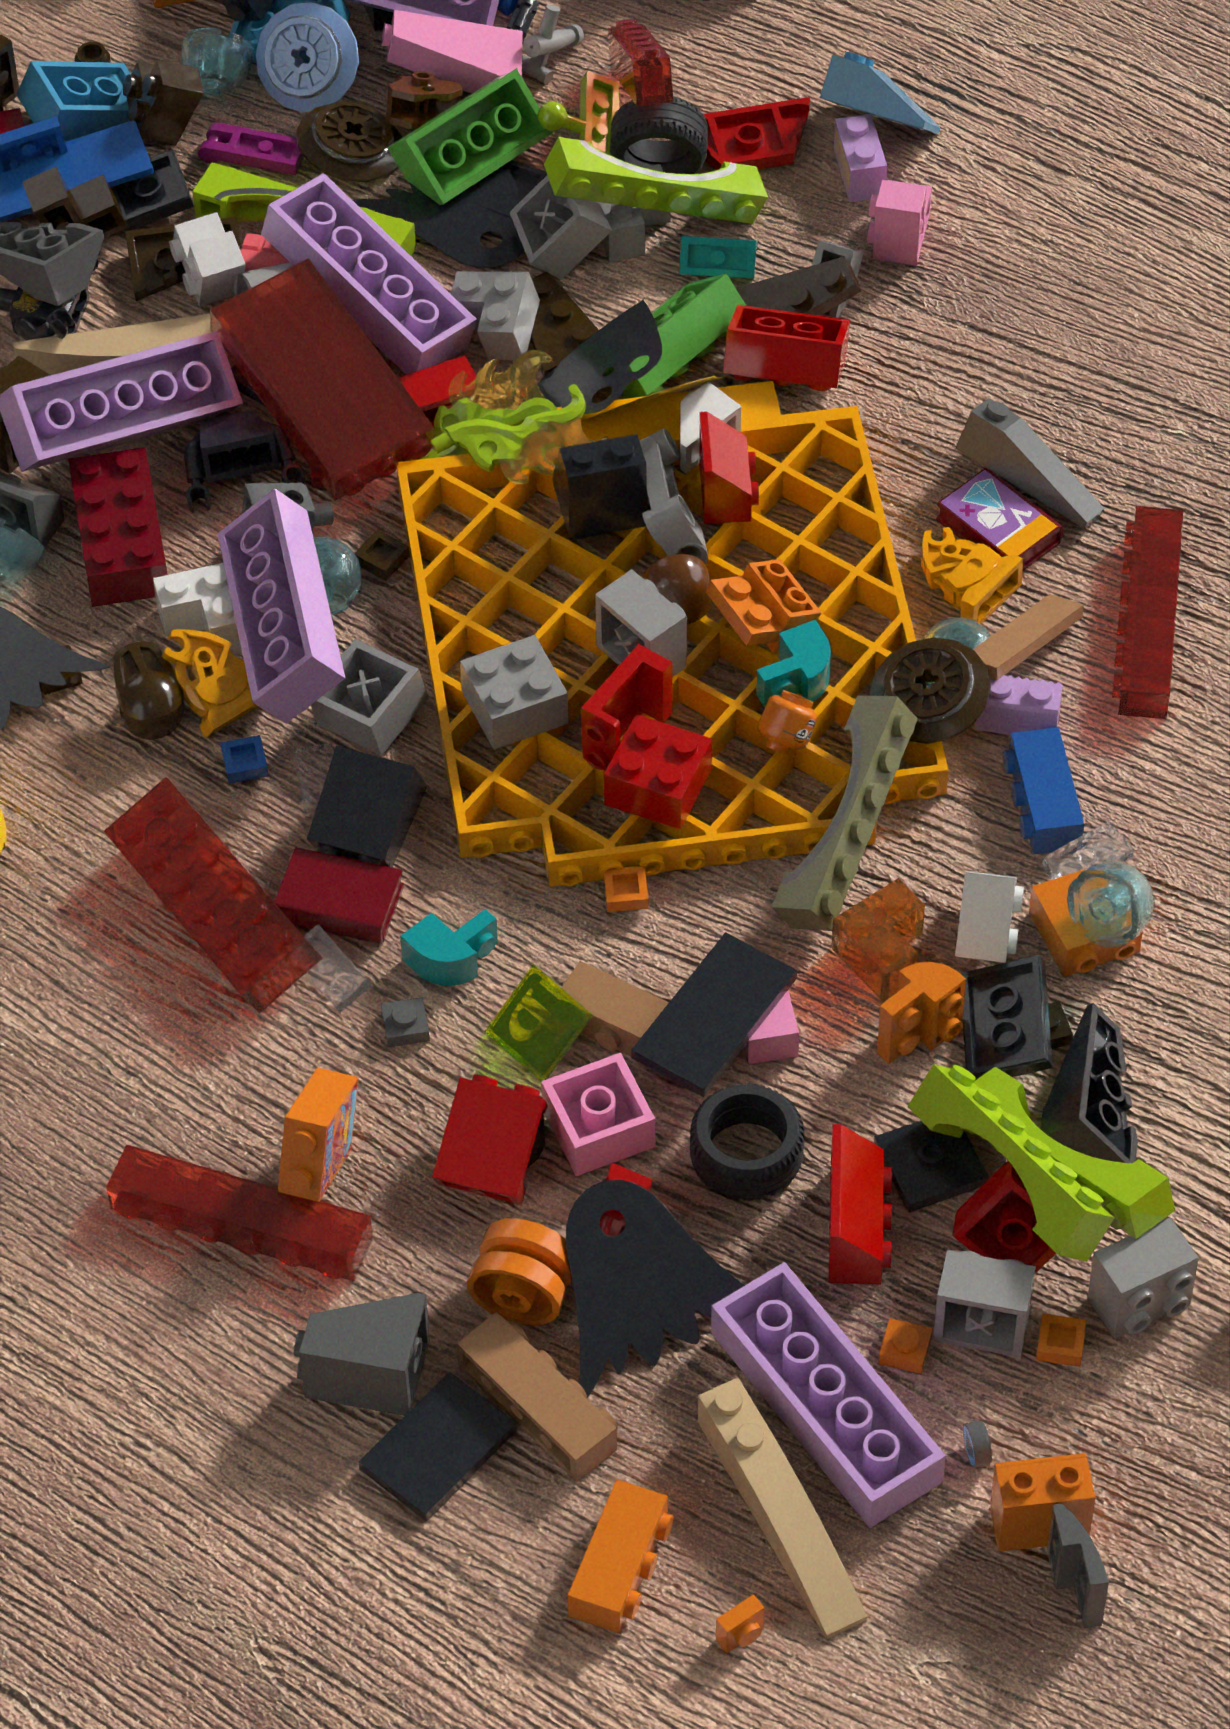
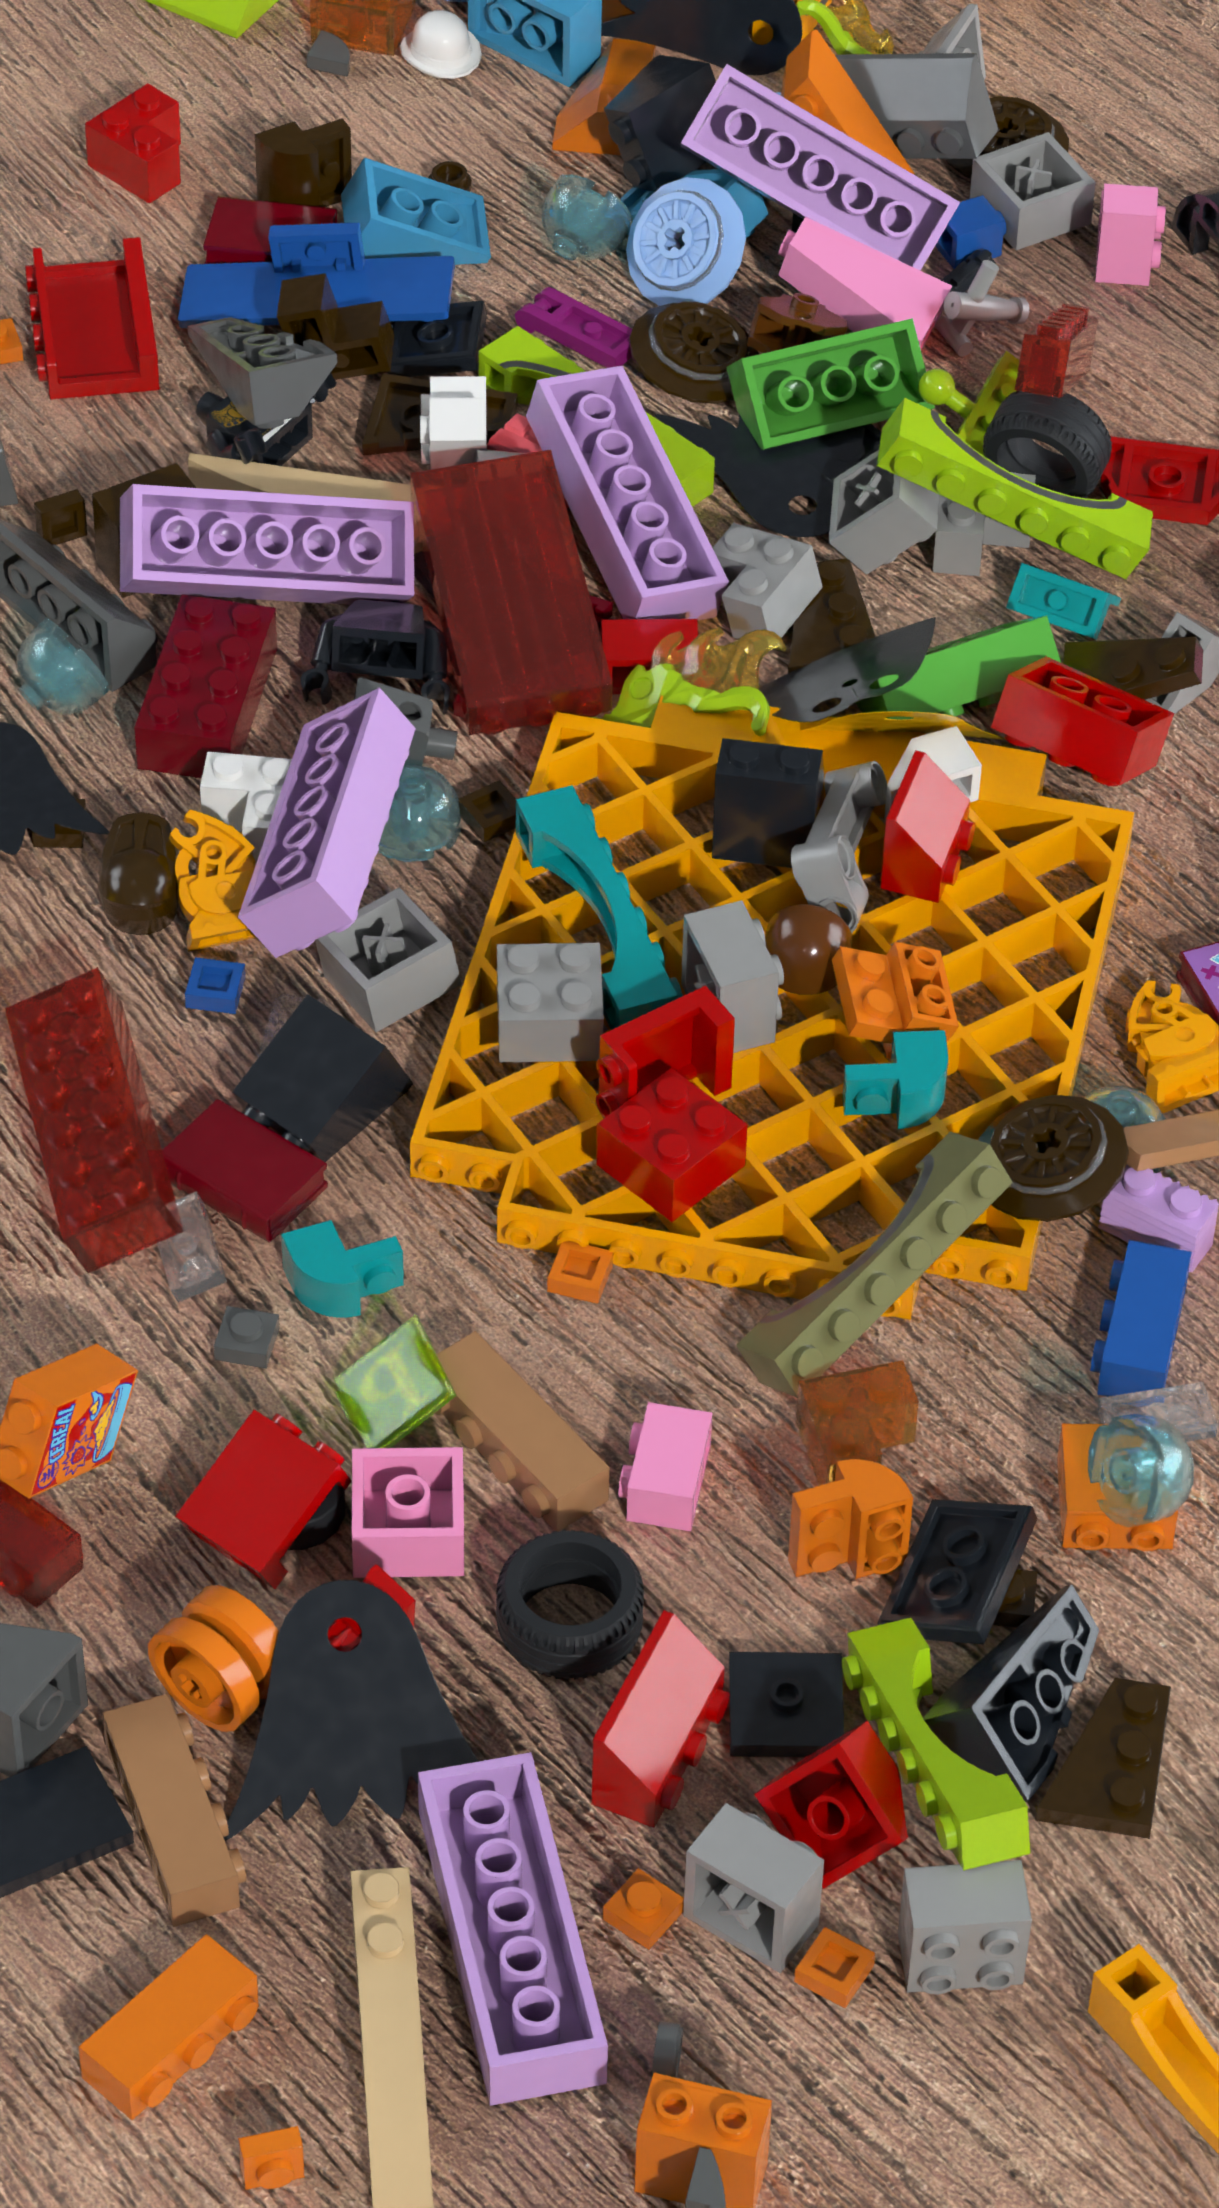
camera: 20 degrees right, 5 degrees down
(162, 99) = (495, 243): dark brown brick -> none
(456, 560) = (562, 838): none -> teal arch
(520, 447) = (697, 733): piece -> none
(714, 1014) = (599, 1442): black tile -> none
(787, 722) = (854, 1137): orange head -> none
(987, 916) = (988, 1439): white brick -> none
(1066, 1213) = (887, 1803): lime arch -> none
(1179, 1120) = (1114, 1764): none -> dark brown wing

